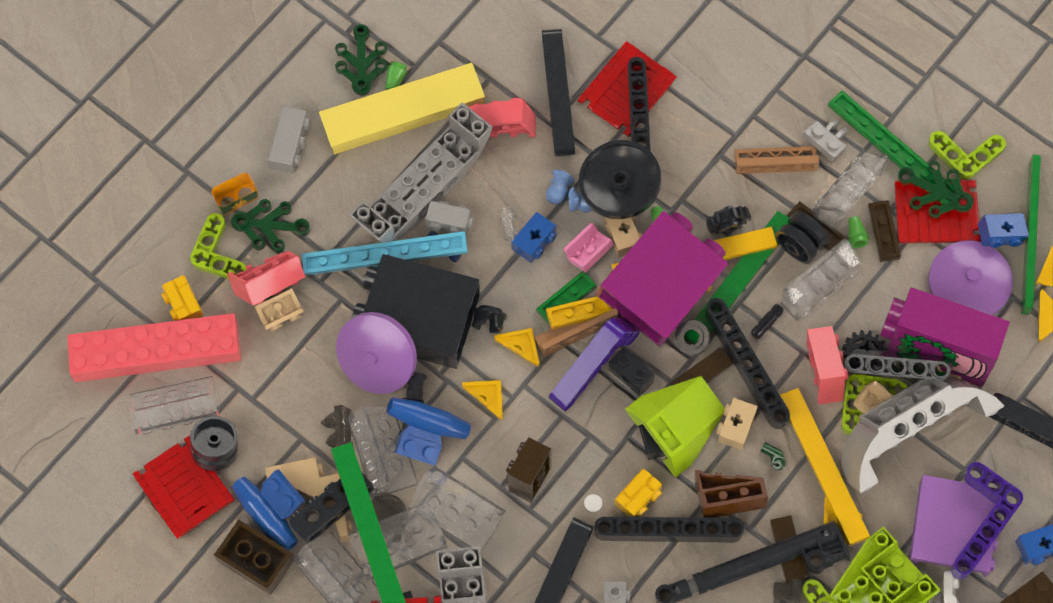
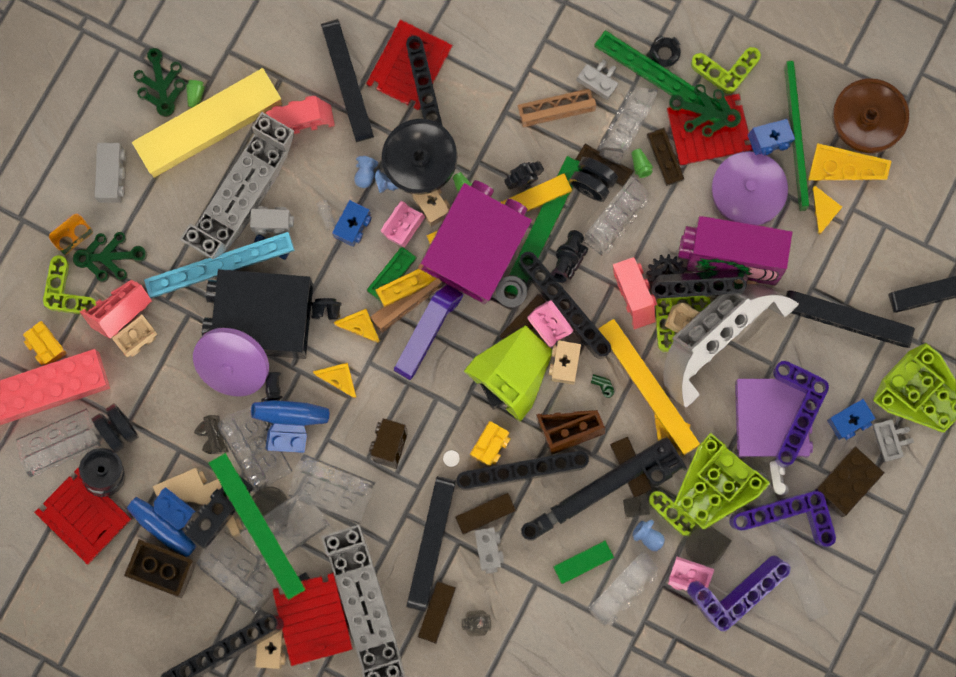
camera: 10 degrees left, 10 degrees up
(240, 398) = (113, 429): none -> black wheel
(619, 568) = (485, 513): none -> dark brown tile
(631, 372) = (462, 333): black brick -> none
(728, 378) = (550, 323): none -> bright pink bracket
(759, 311) = (567, 256): none -> black piece
(911, 117) = (671, 43): none -> black piece

